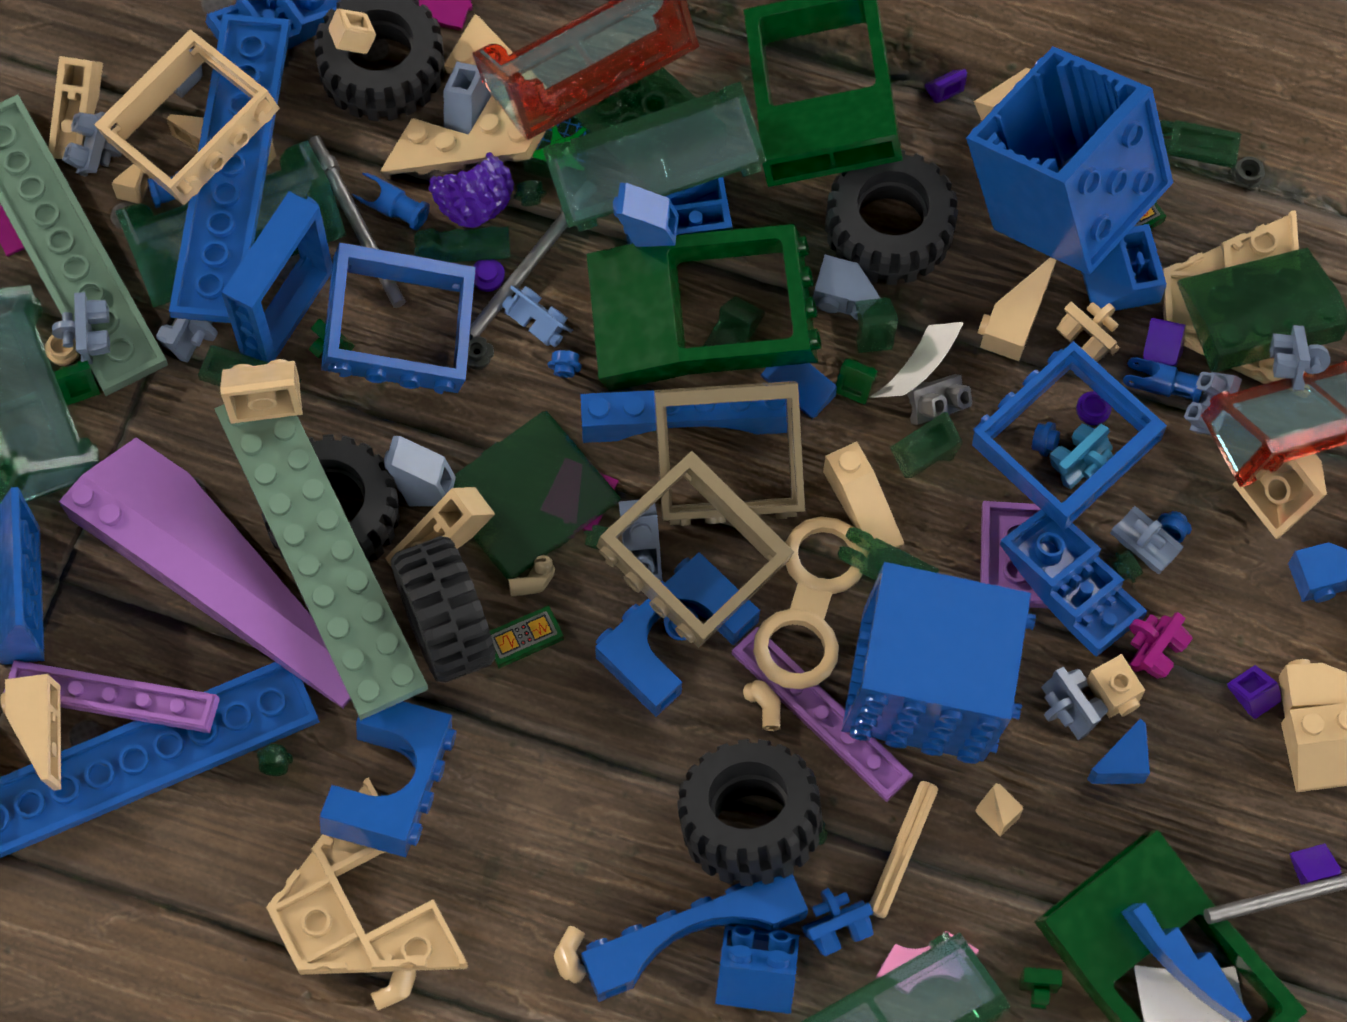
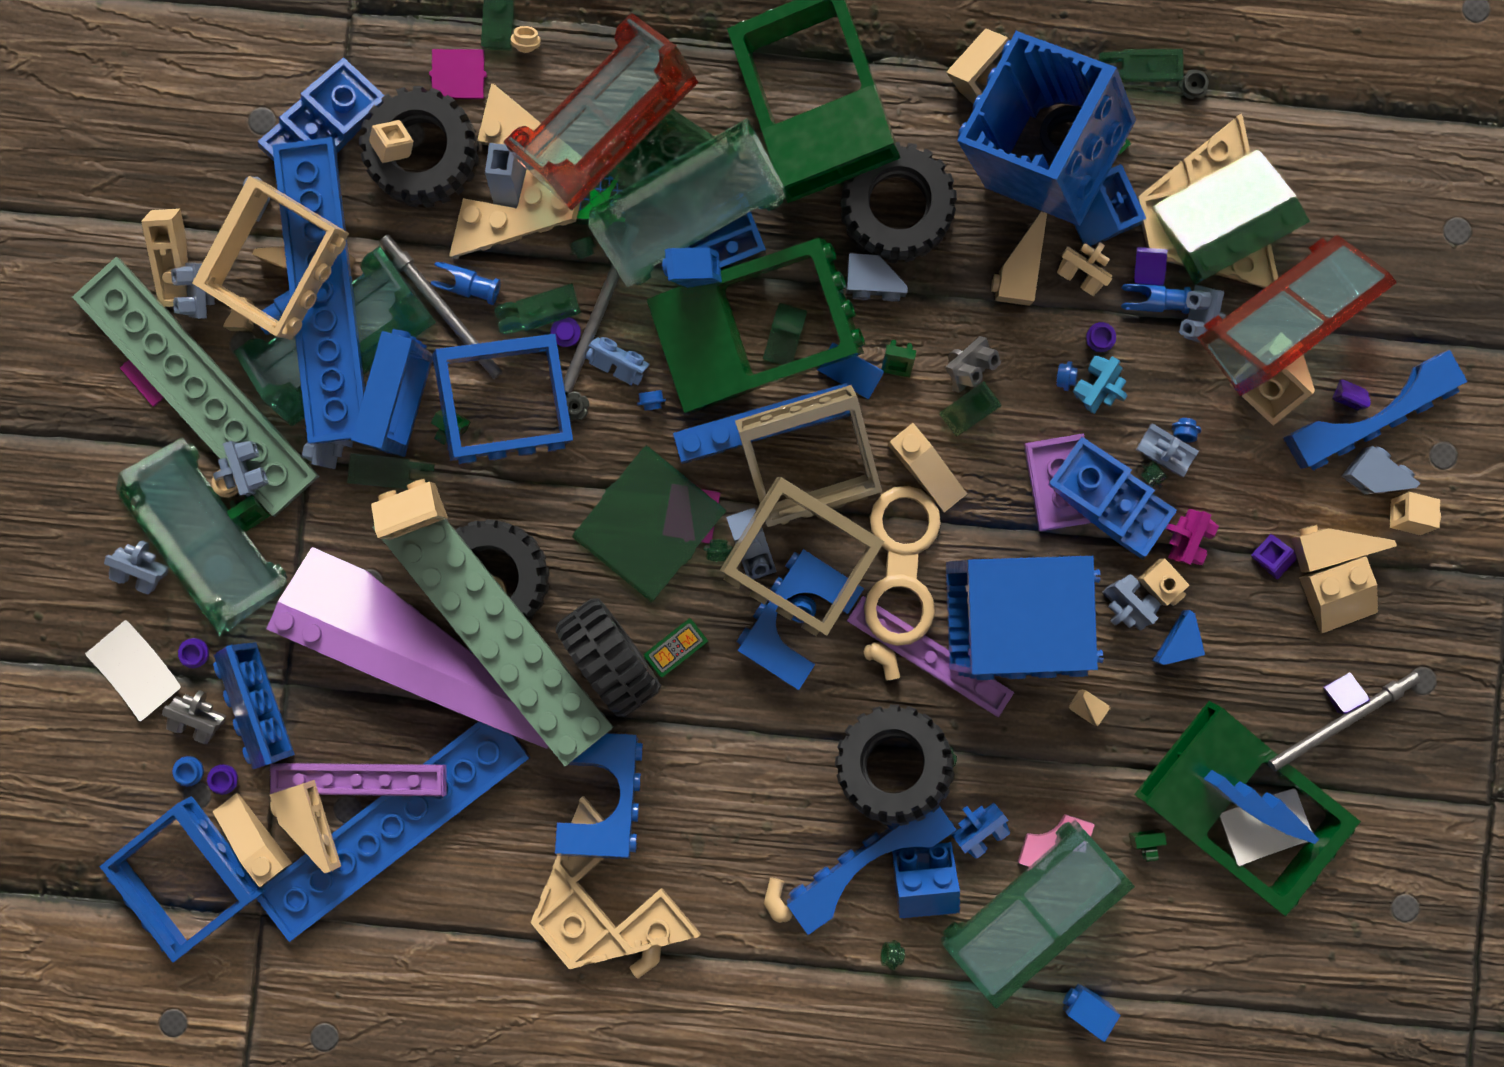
camera: 10 degrees left, 20 degrees up
(274, 760) = (503, 798): clear green plate -> none
(418, 472) = (556, 534): sand blue slope -> none
(455, 516) = (587, 577): tan slope -> none
(474, 195) = (536, 268): dark purple hair -> none
(536, 580) = (674, 597): dark tan arm -> none
(876, 325) = (905, 305): clear green slope -> none
(877, 554) = (962, 520): clear green hinge -> none
(903, 848) = (1018, 755): tan axle -> none
(926, 357) = (951, 334): white sticker -> none
(947, 85) = (917, 57): dark purple slope -> none
(1037, 383) = (1157, 359): blue window -> none
(1295, 356) = (1275, 269): sand blue hips -> none

